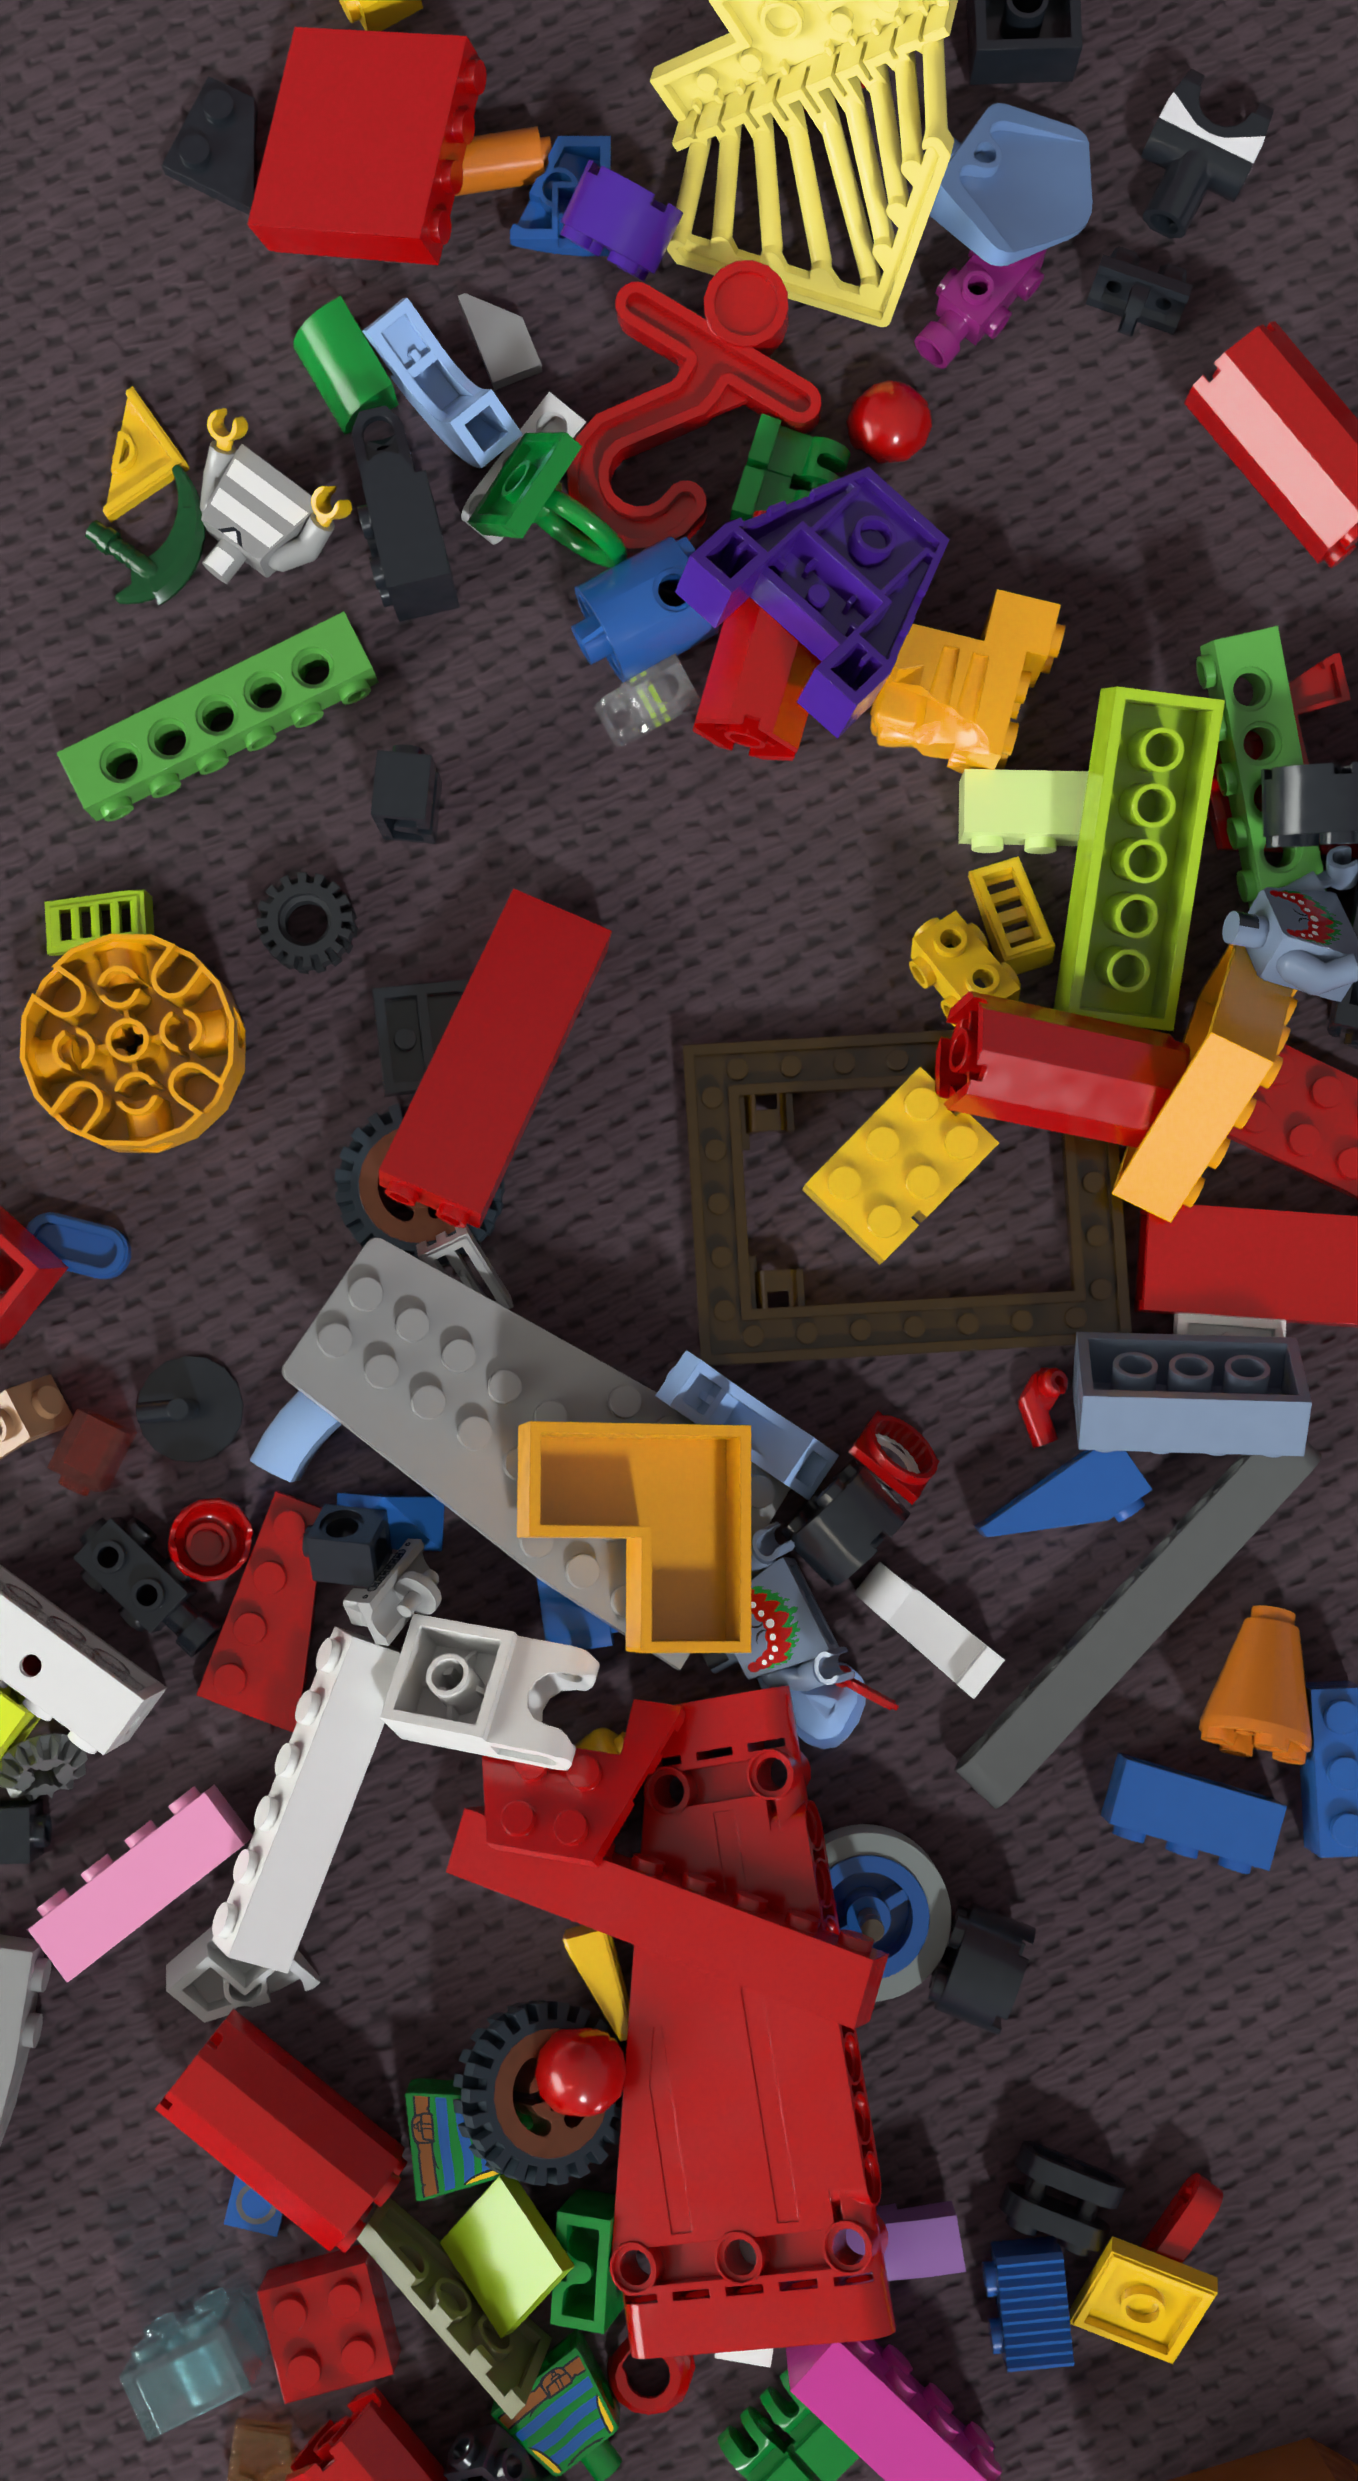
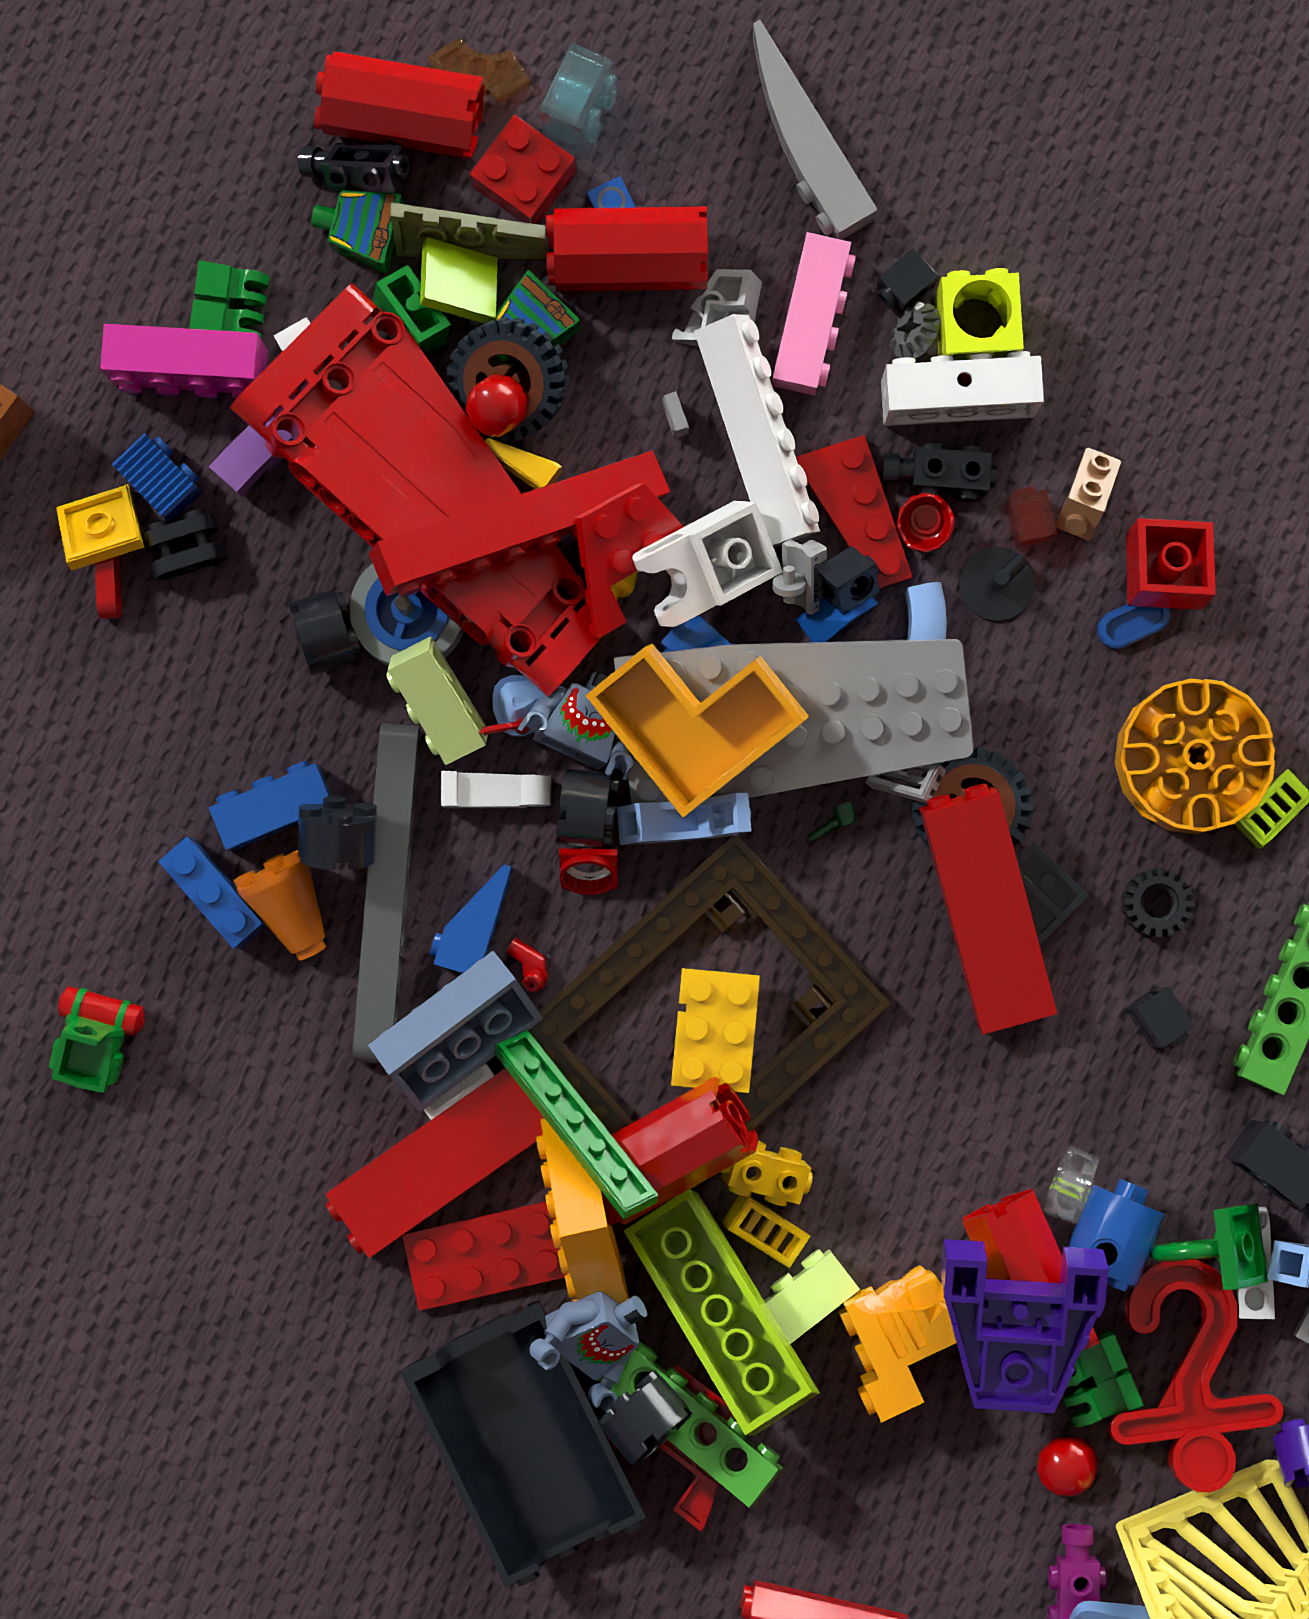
camera: 145 degrees right, 0 degrees up
(387, 1891) = (675, 415): none -> light grey tile
(565, 1289) = (844, 815): none -> dark green hand
(681, 2375) = (313, 292): red piece -> none
(917, 1784) = (436, 700): none -> yellowish green brick
(1143, 1179) = (576, 1124): none -> tile
(1152, 1722) = (337, 833): none -> black brick

